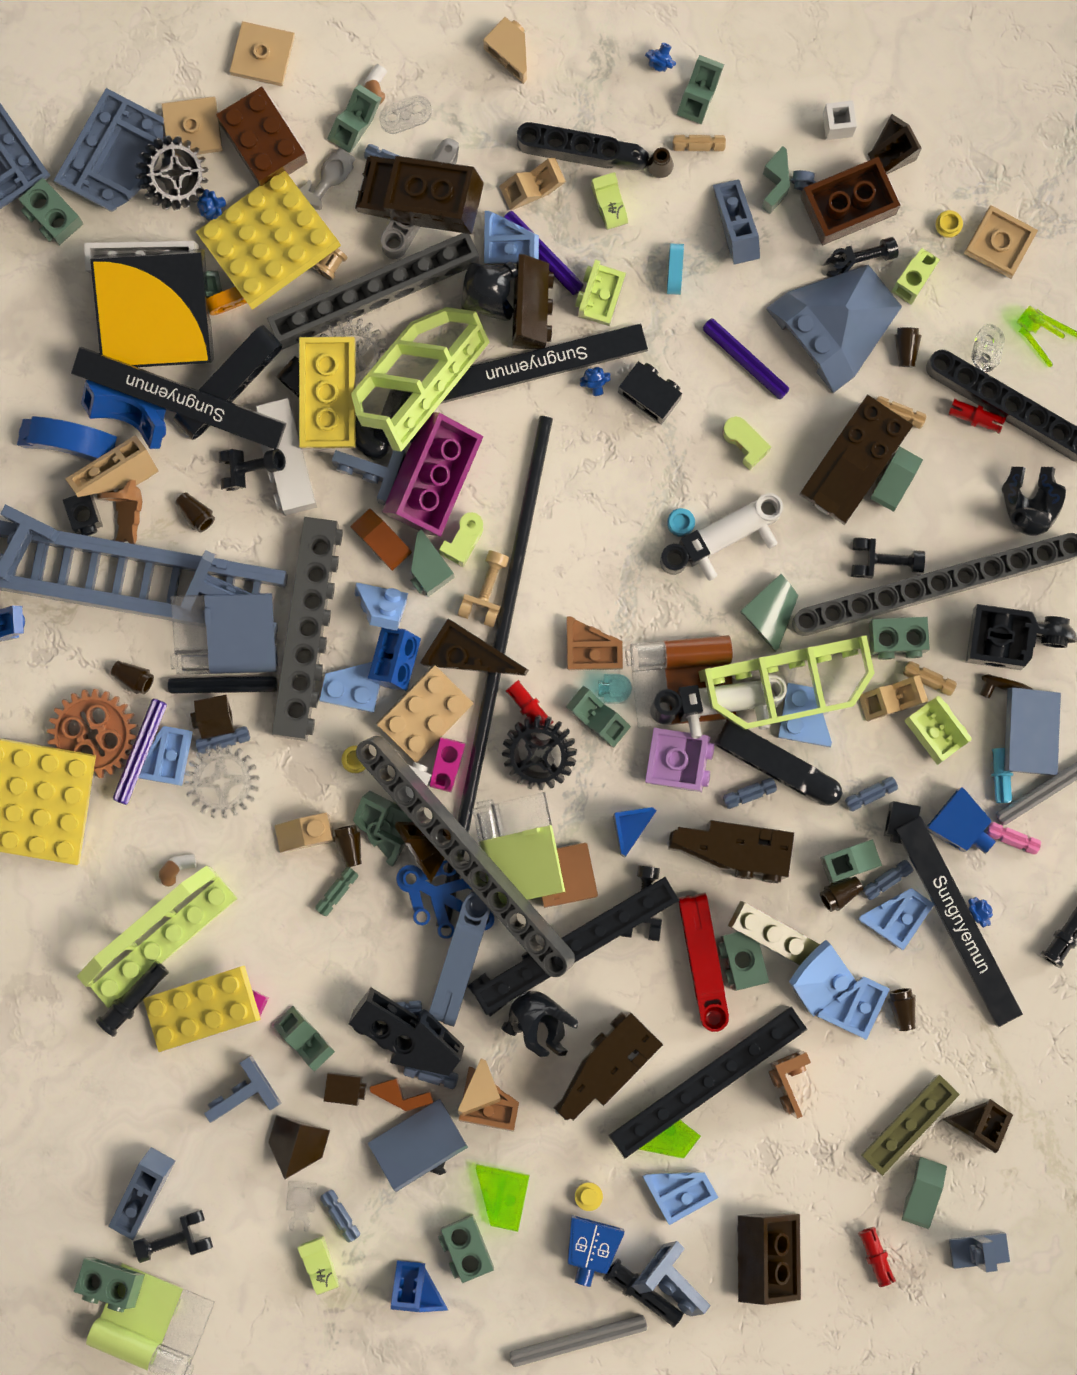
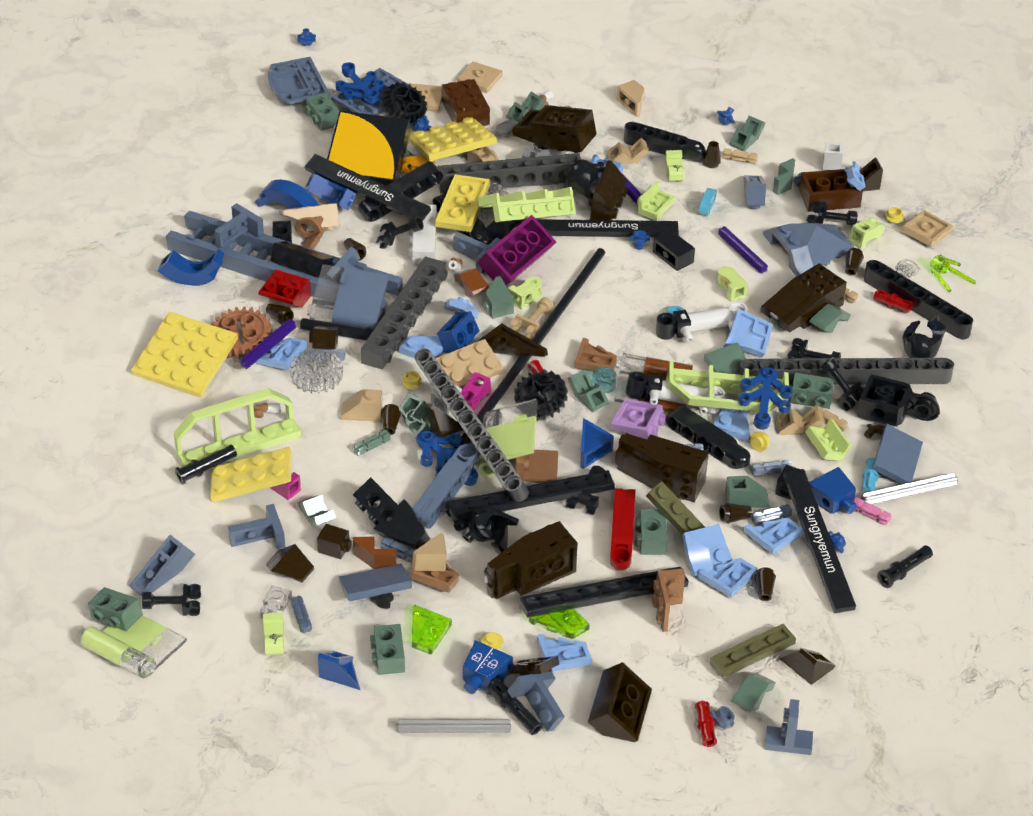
camera: 15 degrees right, 40 degrees down
(93, 149) = (370, 96): none -> blue plant
(127, 638) = (287, 288): none -> red slope
(132, 576) = (299, 258): none -> black brick
(351, 513) = (455, 265): none -> white arm
(654, 1239) = (534, 665): none -> dark brown wing
(793, 547) = (750, 333): none -> light blue plate
(844, 687) = (767, 377): none -> blue plant
(847, 752) = (759, 441): none -> light yellow plate
(886, 189) = (854, 178): none -> light blue plate
(901, 1240) = (723, 717): none -> sand blue plate
(921, 608) = (856, 390): none -> black bar

